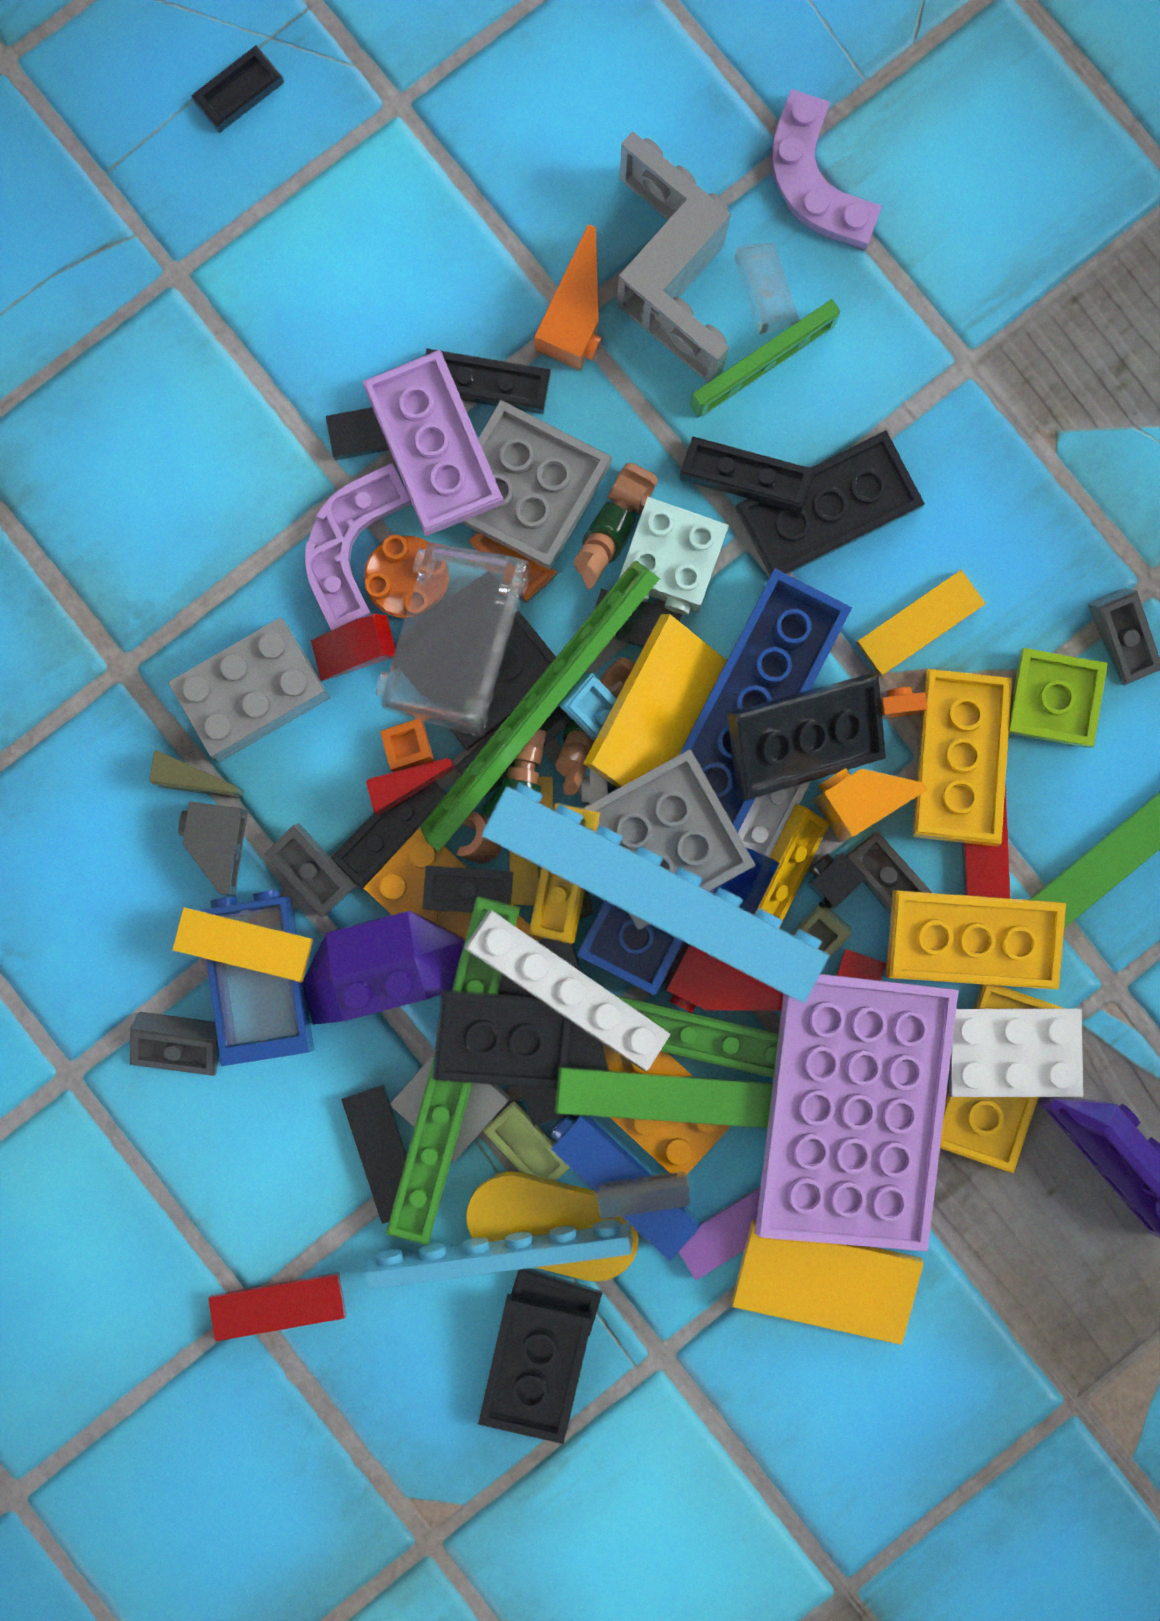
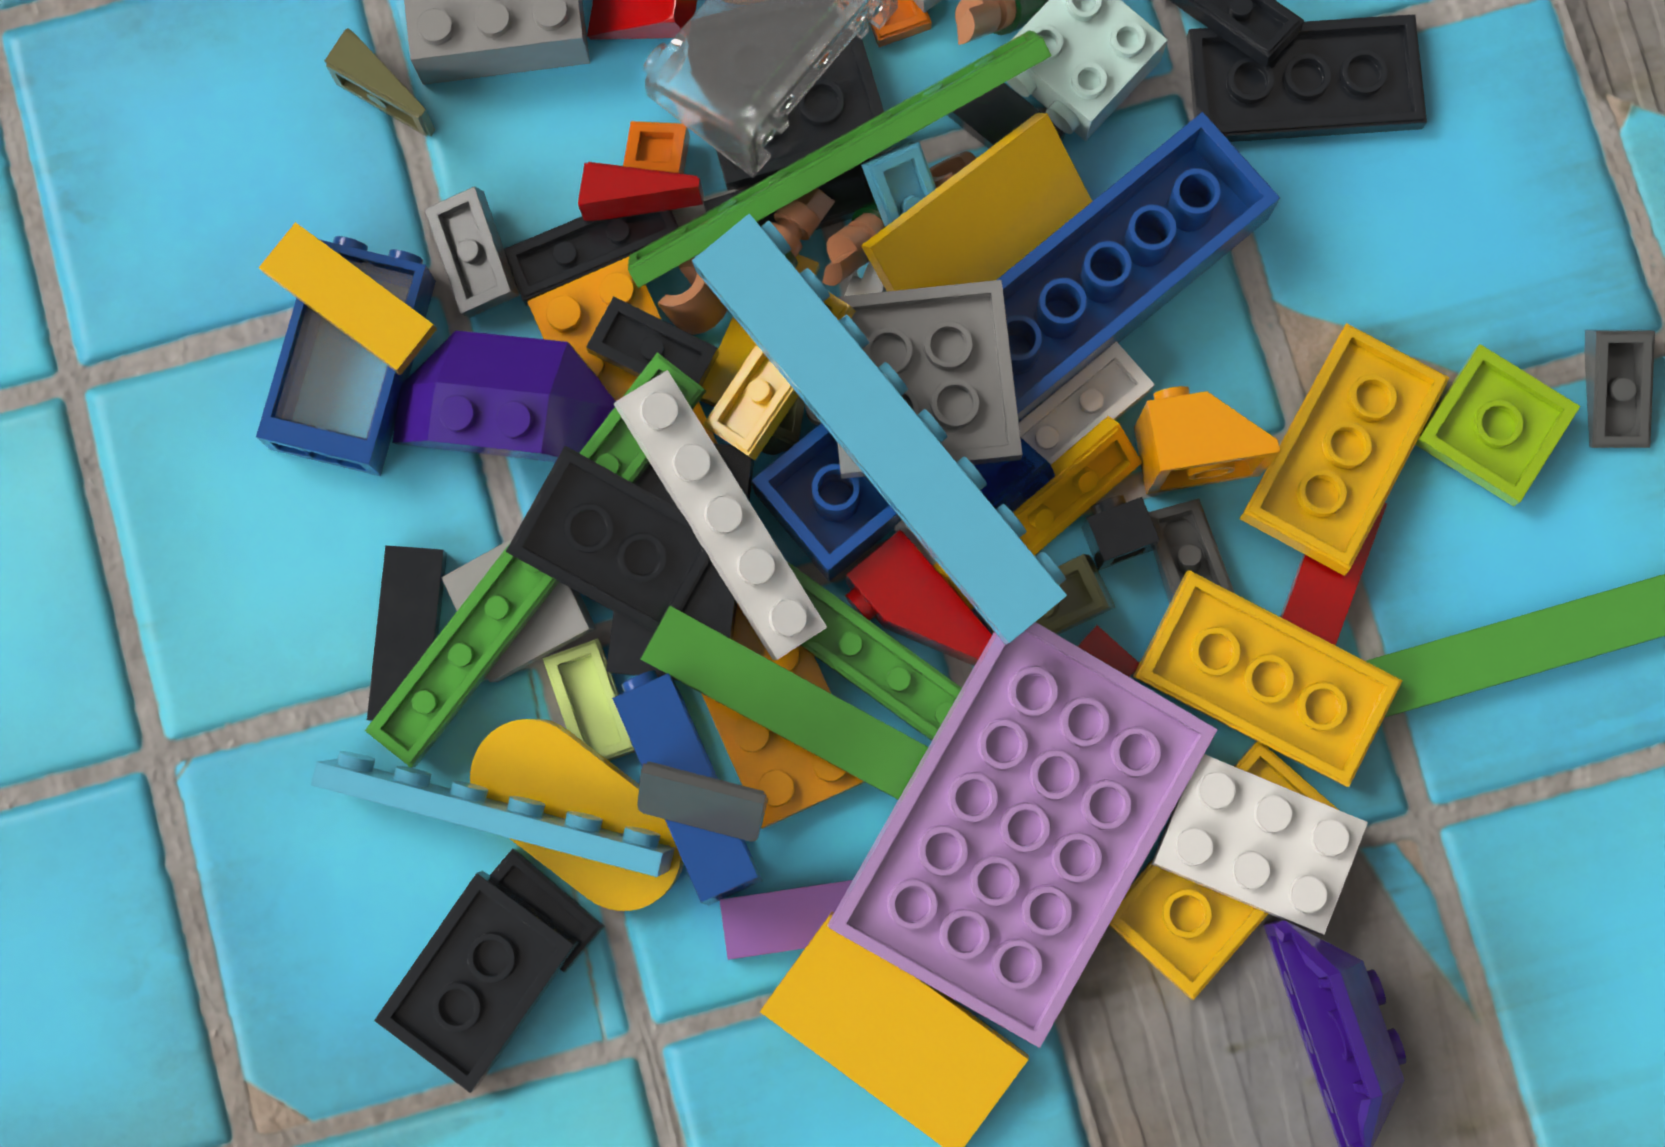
camera: 30 degrees right, 5 degrees down
(174, 1043) = (211, 395): dark grey slope -> none
(215, 841) = (373, 170): dark grey slope -> none
(277, 1306) = (192, 768): red tile -> none
(806, 736) = (1155, 330): black tile -> none
(902, 703) = (1294, 351): orange plate -> none
(920, 623) = (1361, 265): yellow tile -> none

